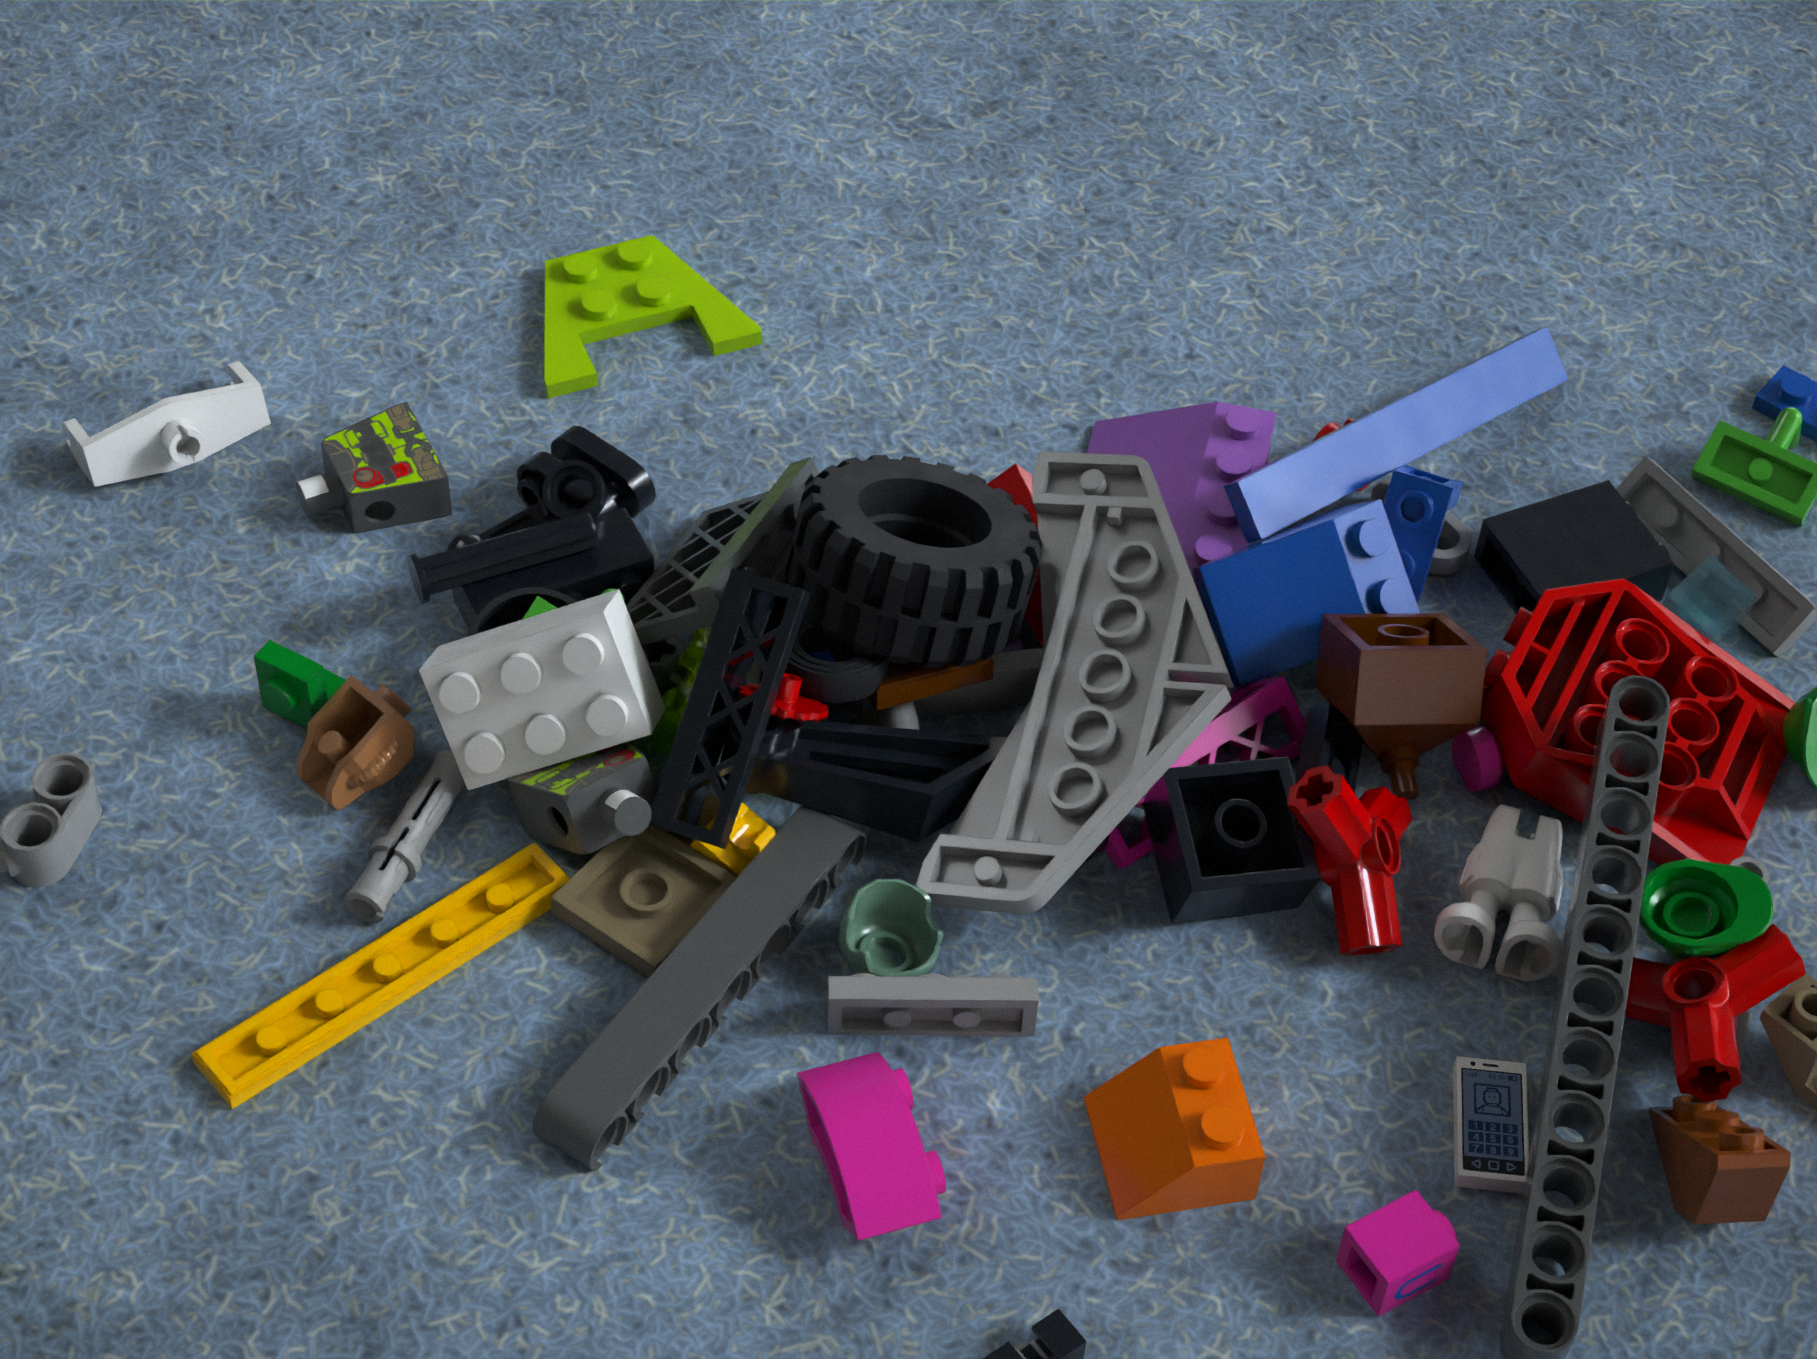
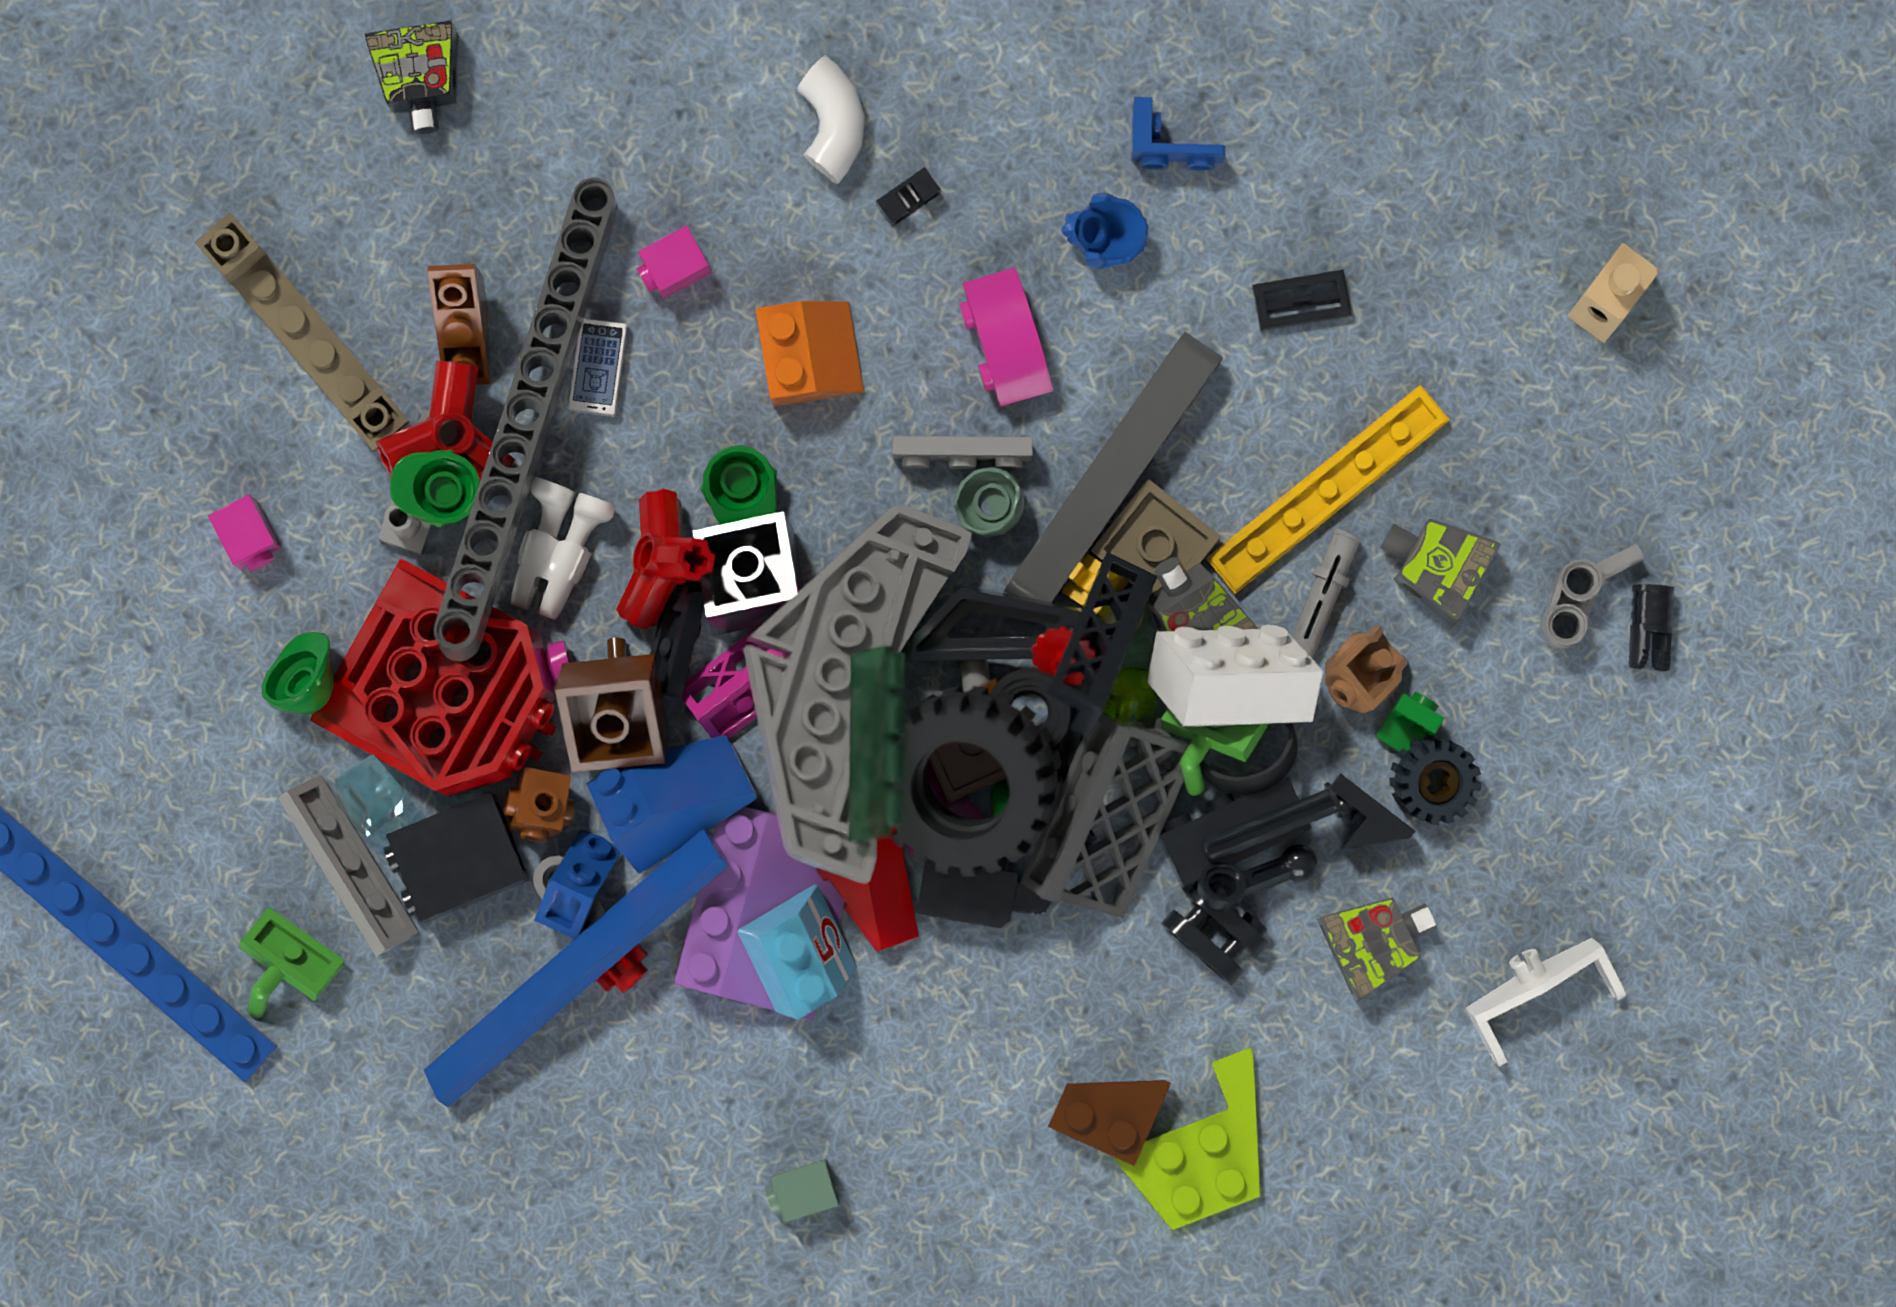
camera: 170 degrees left, 35 degrees up
(229, 866) = (1441, 565): none -> torso
(282, 611) = (1412, 780): none -> black bush
(372, 592) = (1378, 823): none -> black slope
(407, 1242) = (1307, 317): none -> black tile
(709, 1290) = (1107, 231): none -> blue hair
(725, 320) = (1110, 1115): none -> reddish brown wing
(1041, 567) = (873, 757): none -> clear green windscreen
(1092, 263) = (802, 1191): none -> sand green brick
(1127, 416) = (798, 953): none -> medium azure slope
(1256, 958) = (739, 484): none -> green hat
(1480, 597) = (550, 792): none -> dark orange brick

